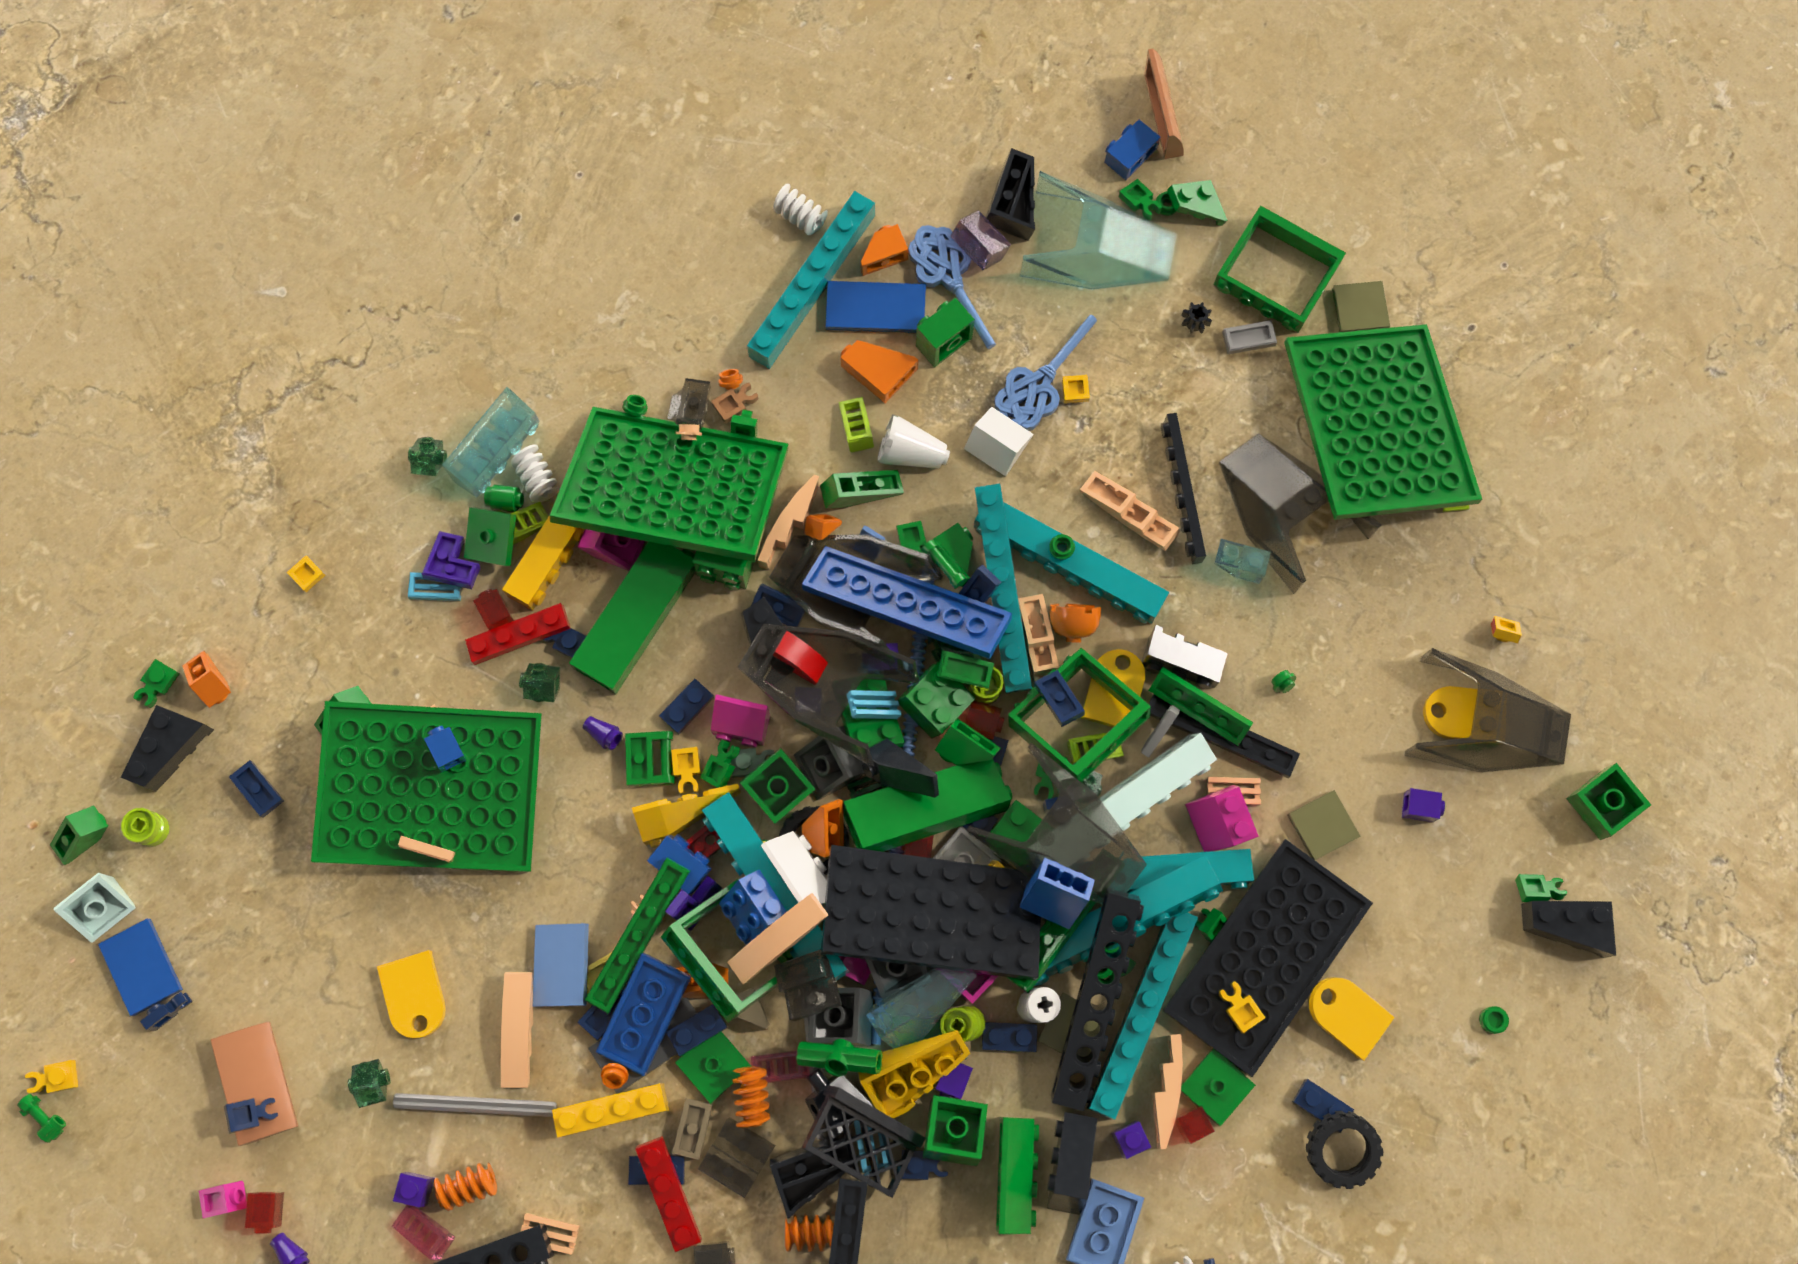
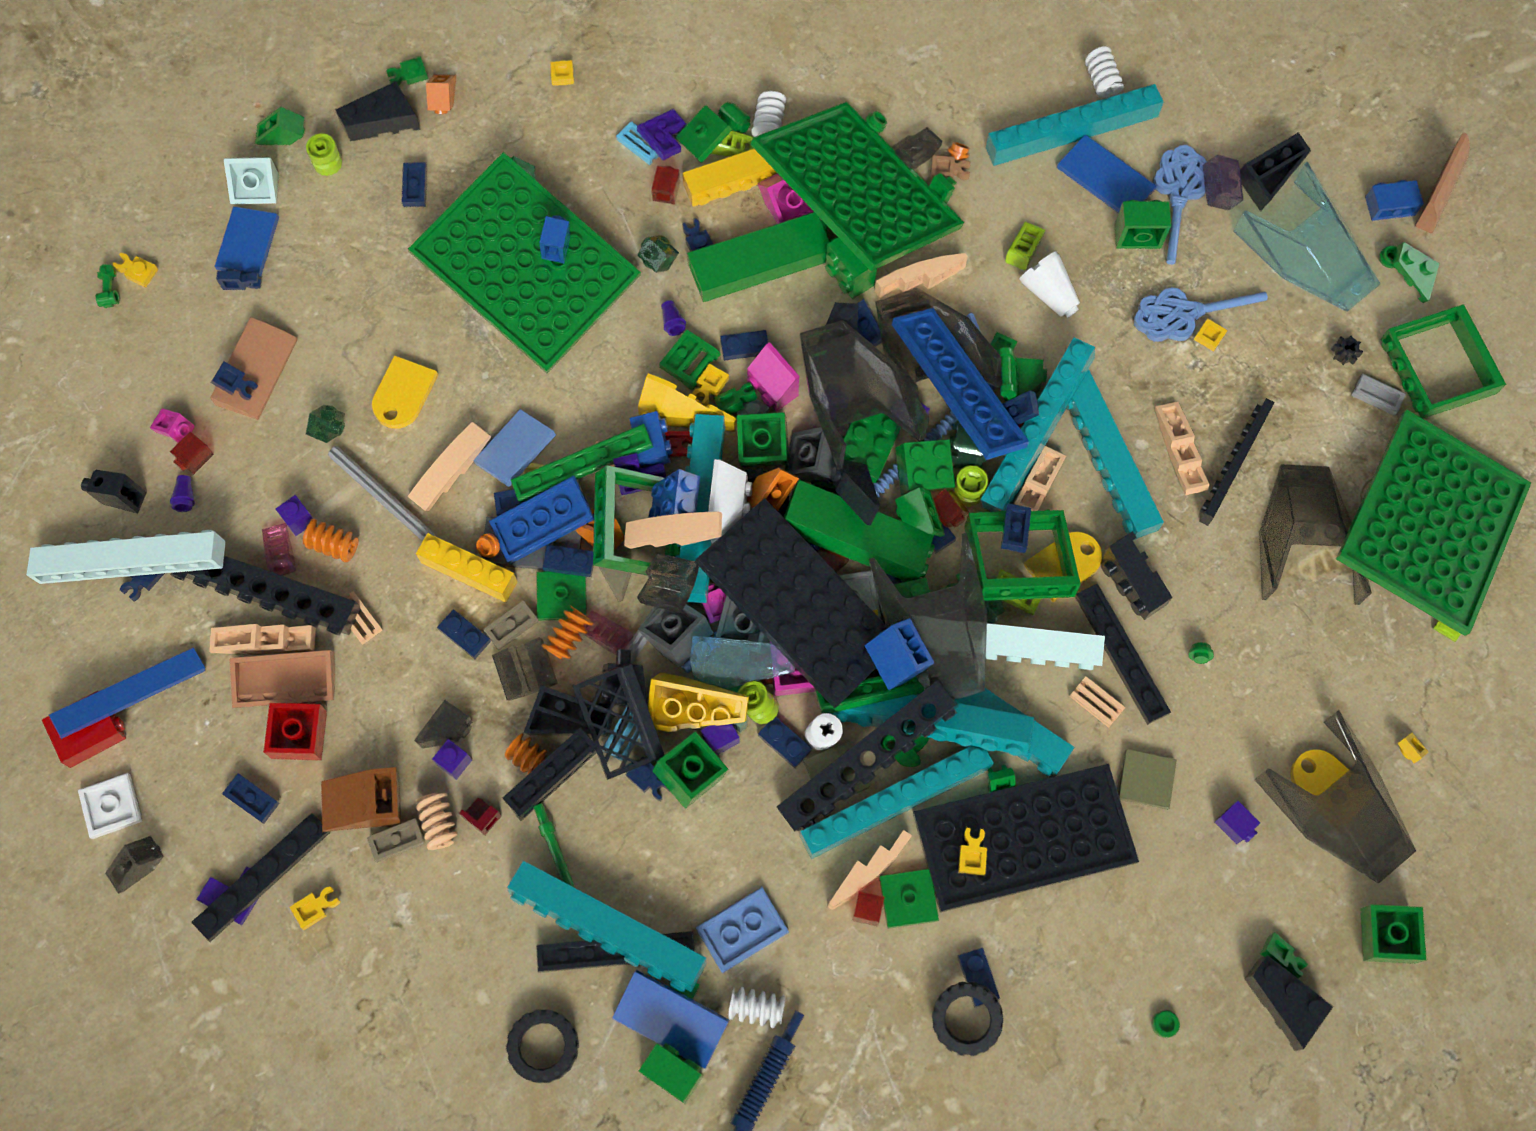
camera: 40 degrees right, 5 degrees down
(426, 456) = (705, 53): clear green brick -> none
(426, 849) = (489, 298): light nougat tile -> none
(491, 443) = (755, 71): clear light blue slope -> none
(517, 634) = (669, 211): red plate -> none
(668, 1194) = (457, 653): red plate -> none
(688, 431) = (899, 161): light nougat plate -> none
(801, 656) = (851, 361): red slope -> none
(821, 525) = (940, 292): orange slope -> none
(839, 1057) = (650, 651): green piece -> none
(858, 488) = (990, 287): green slope -> none
(873, 699) = (877, 431): medium azure tile -> none
(878, 368) = (1074, 218): orange slope -> none
(884, 250) = (1143, 142): orange slope -> none
(965, 669) = (962, 458): green tile -> none
(997, 441) = (1120, 328): white slope -> none
(1015, 1175) = (708, 835): green slope -> none
(1065, 540) = (1107, 424): green plate -> none
(1072, 1163) = (754, 861): black wedge -> none
(1074, 620) = (1074, 490): orange cylinder -> none
(1131, 1139) = (812, 881): dark purple brick -> none
(1138, 197) = (1372, 236): green plate -> none
(1160, 731) = (1075, 613): light grey tile -> none
(1200, 706) = (1120, 618): green plate -> none
(1221, 819) = (1070, 711): dark pink slope -> none
(1242, 560) = (1239, 543): clear light blue slope -> none
(1349, 1016) = (1053, 929): yellow tile -> none
(1361, 306) = (1488, 433): olive tile -> none

